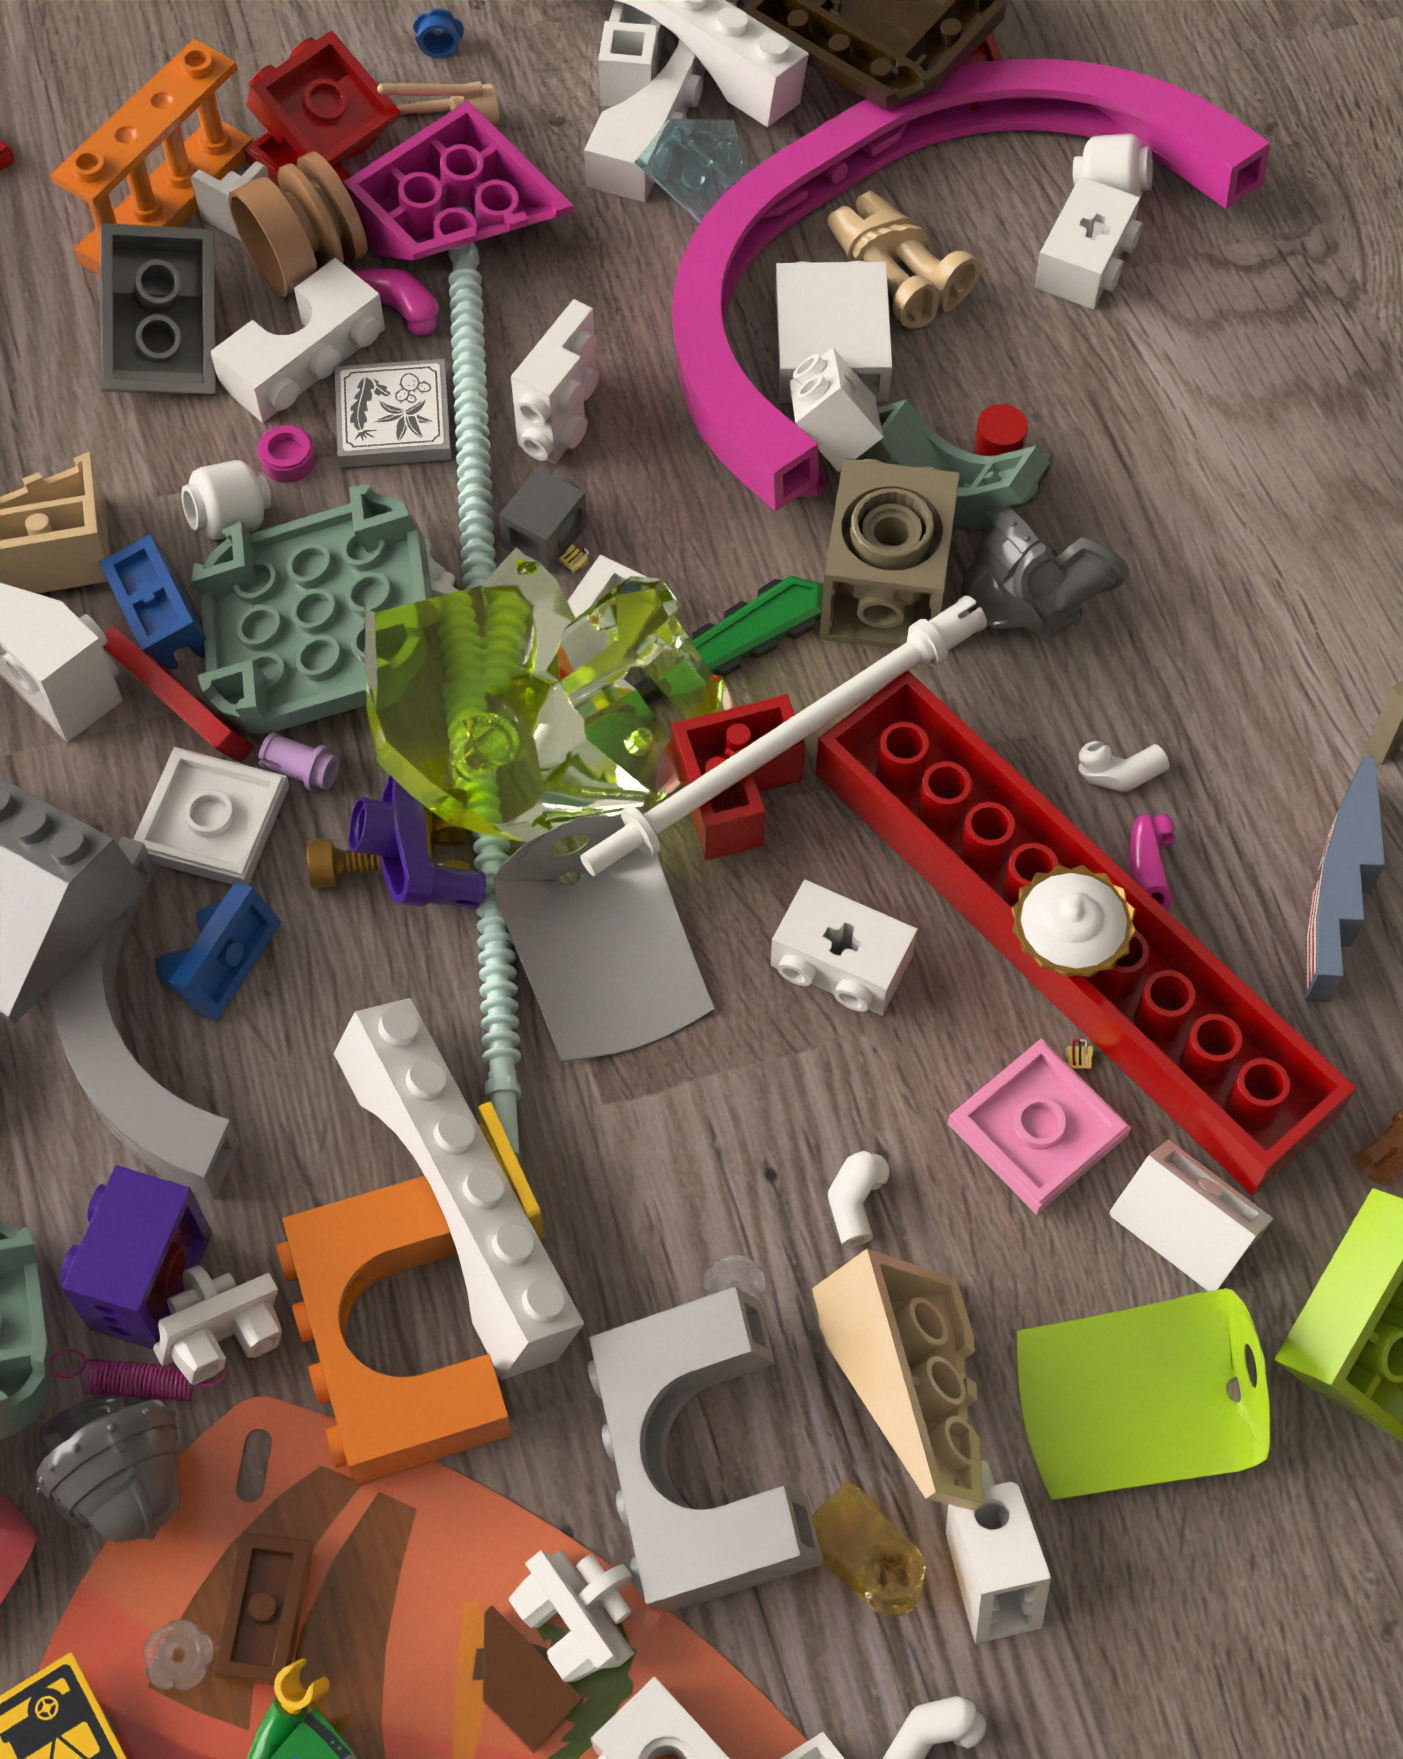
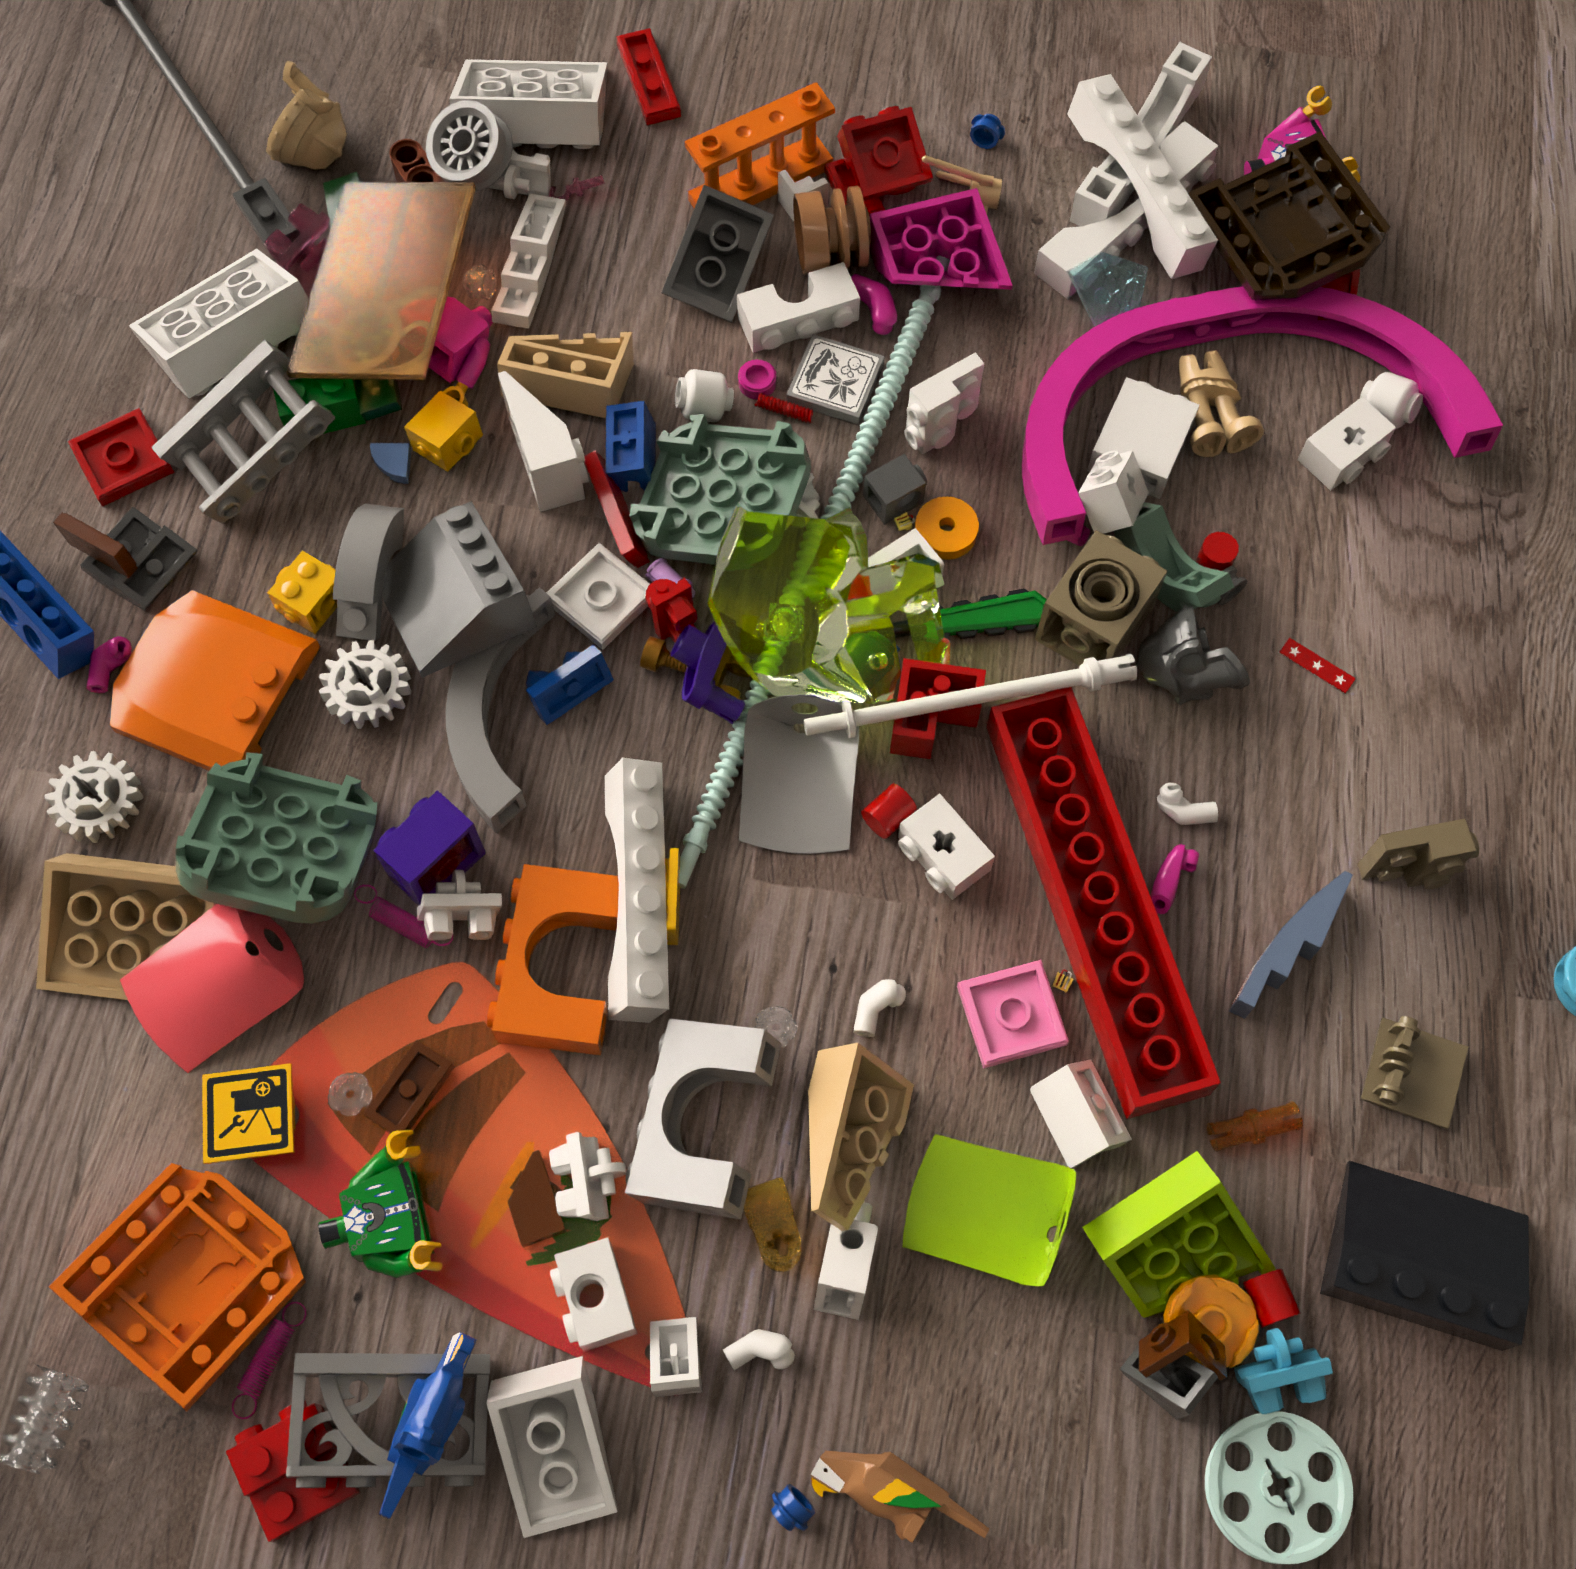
camera: 25 degrees right, 5 degrees up
(112, 1467) = (360, 967): dark grey head -> none
(321, 789) = (671, 607): none -> red hips
(342, 475) = (785, 408): none -> red piece
(637, 522) = (953, 513): none -> light orange piece
(745, 934) = (888, 810): none -> red piece
(1073, 921) = (1088, 896): white piece -> none
(1189, 526) = (1317, 665): none -> red sticker

